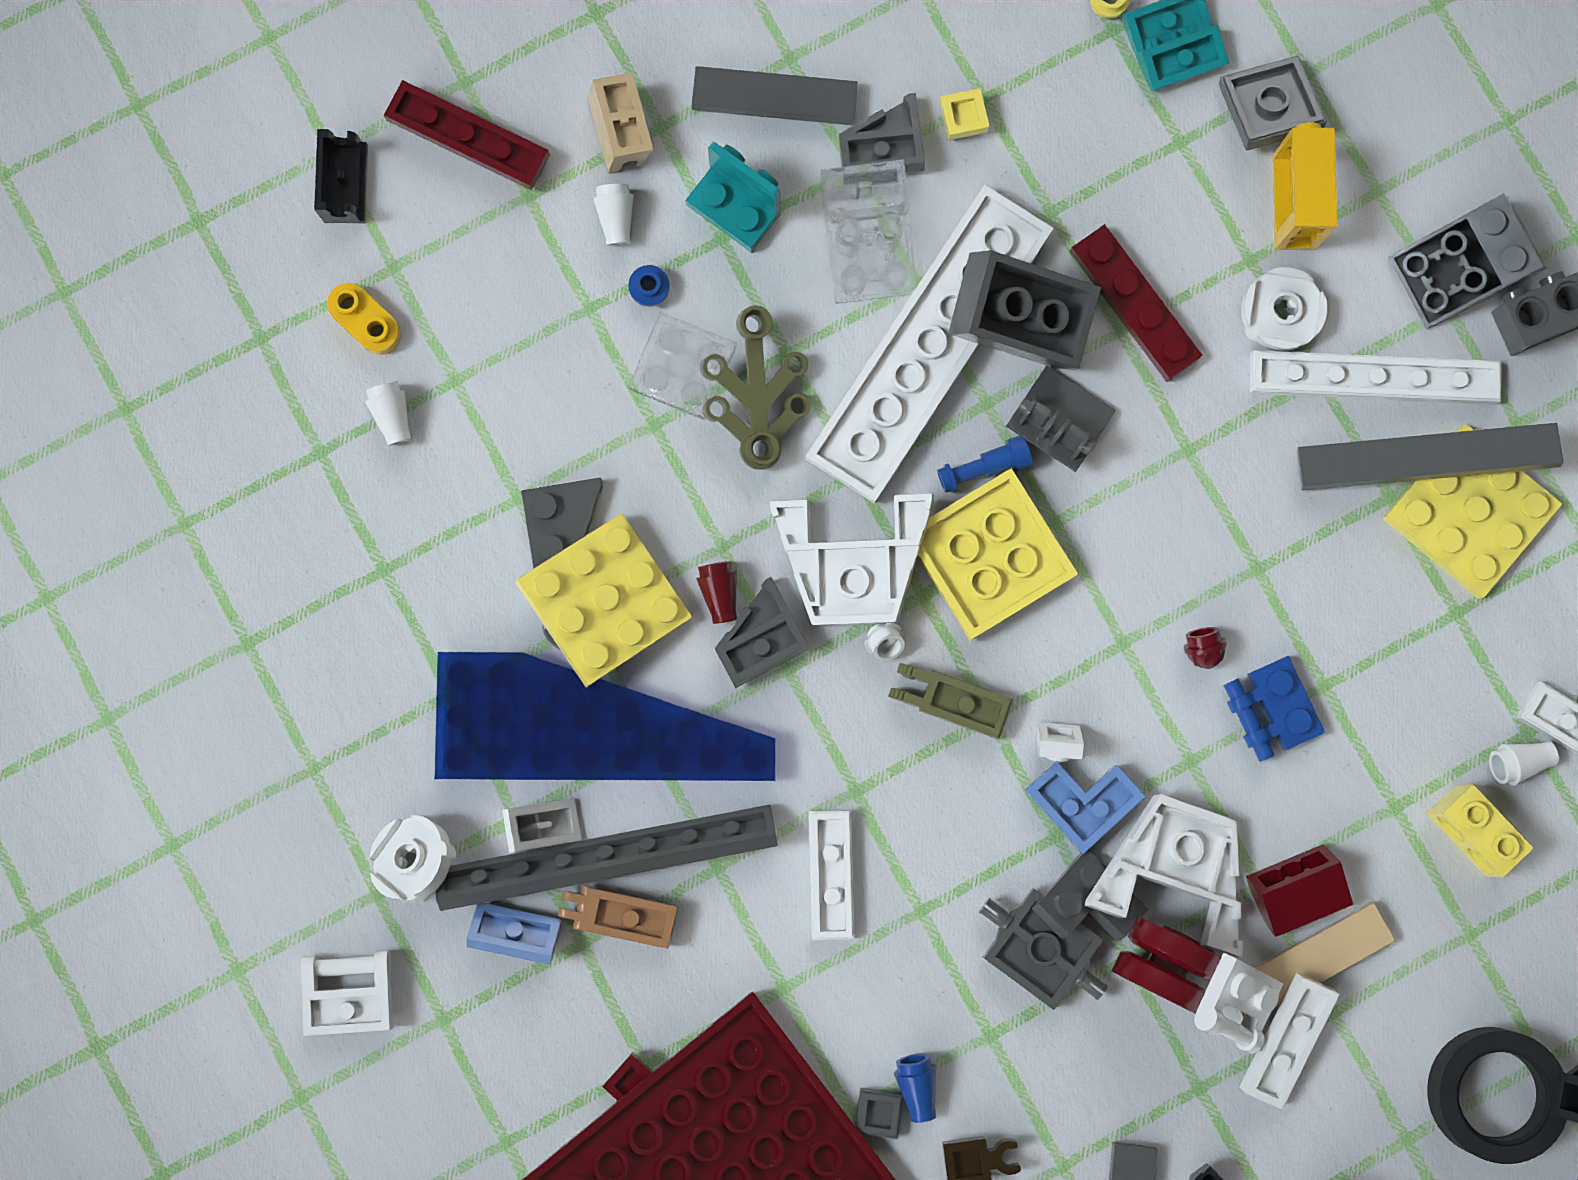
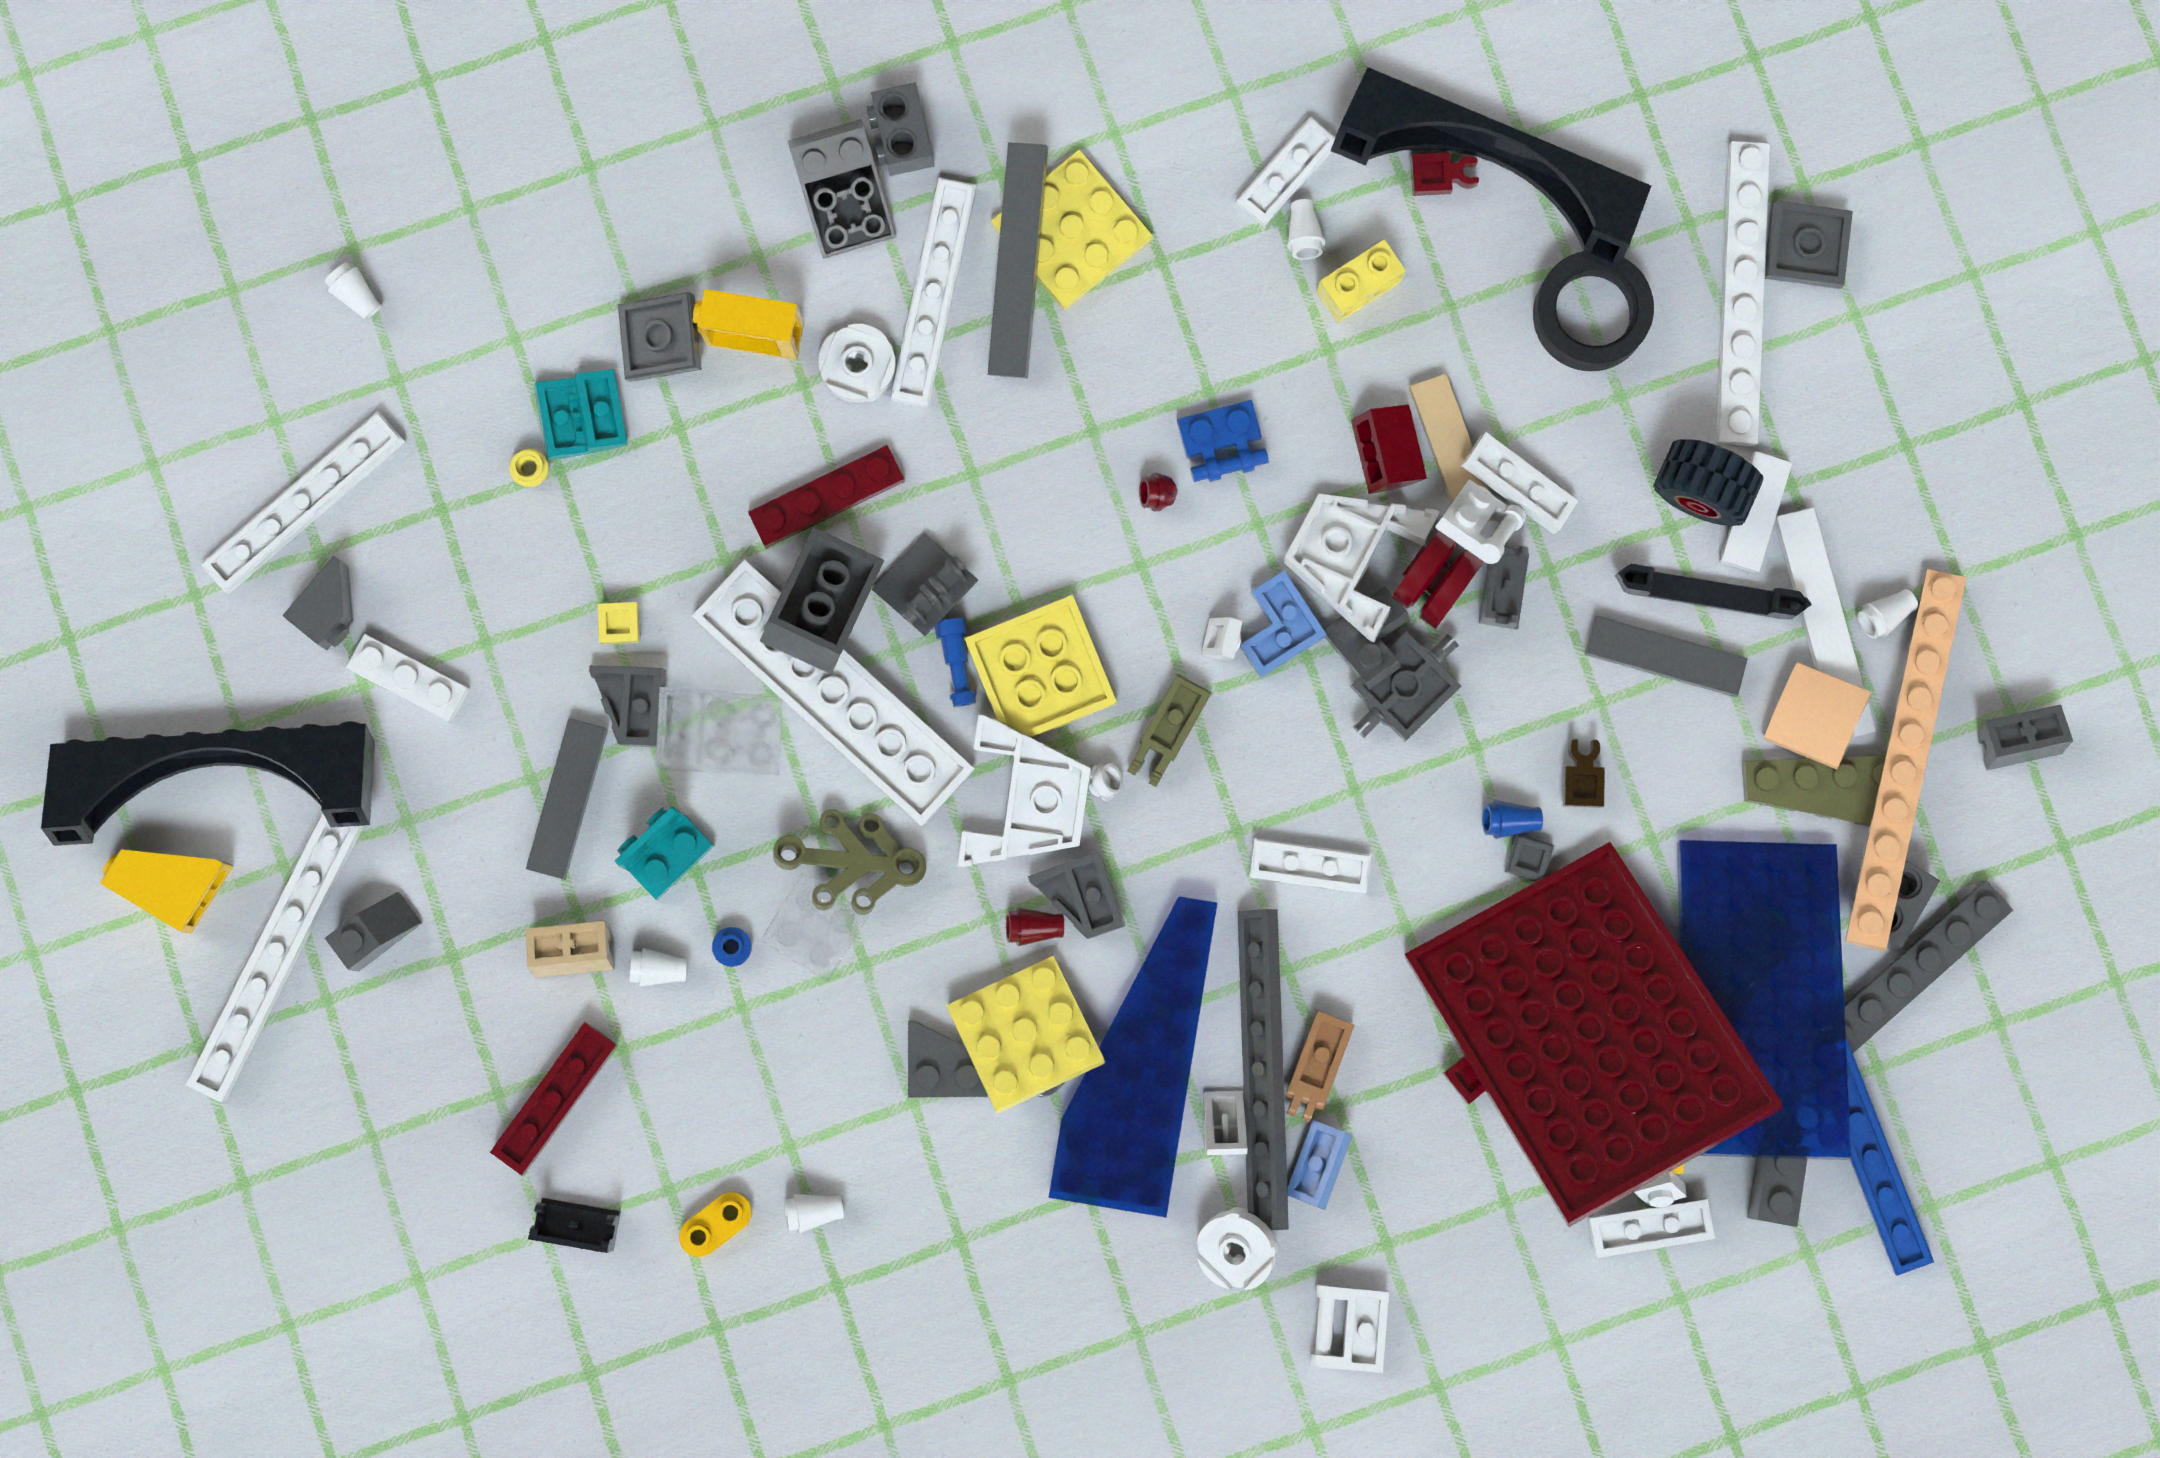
camera: 80 degrees left, 0 degrees up
(1169, 1042) = (1505, 589): none -> dark grey hinge

